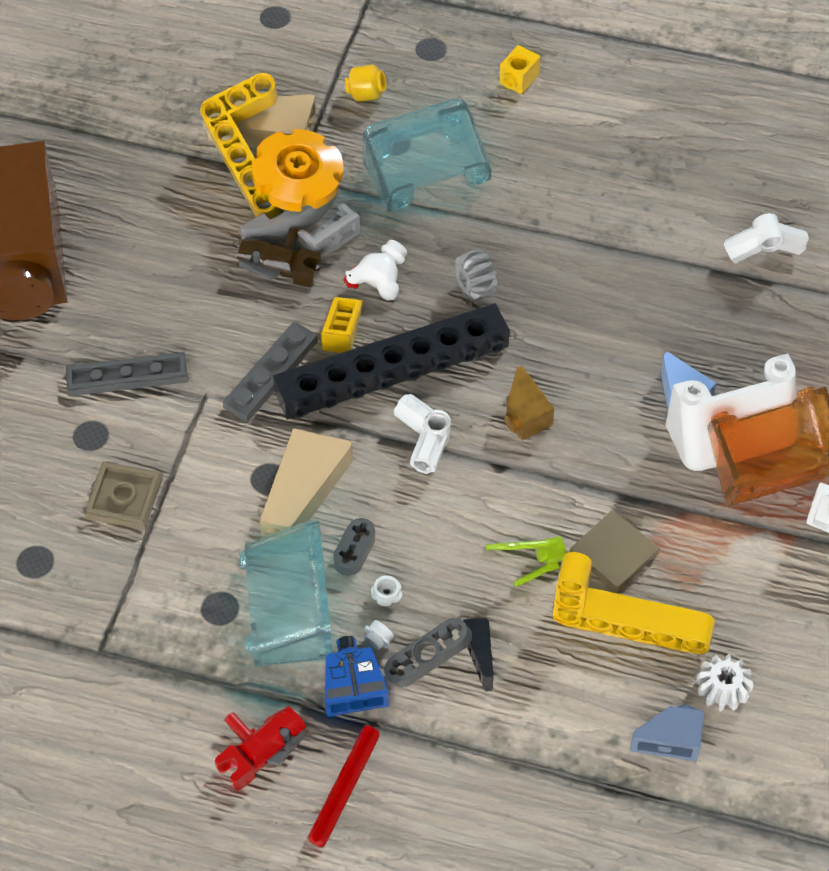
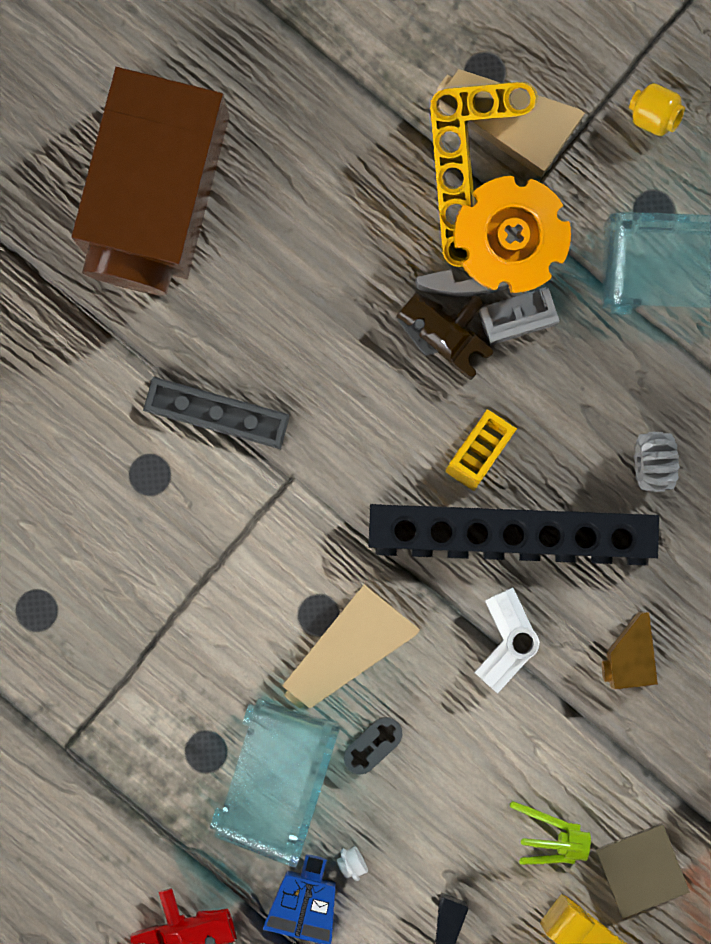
camera: 25 degrees right, 30 degrees up
(123, 495) = (156, 572): dark tan tile -> none
(258, 383) = (375, 479): dark grey plate -> none
(379, 270) = (551, 400): white animal -> none
(386, 583) = (378, 823): white plate -> none
(441, 655) = (417, 924): dark grey beam -> none

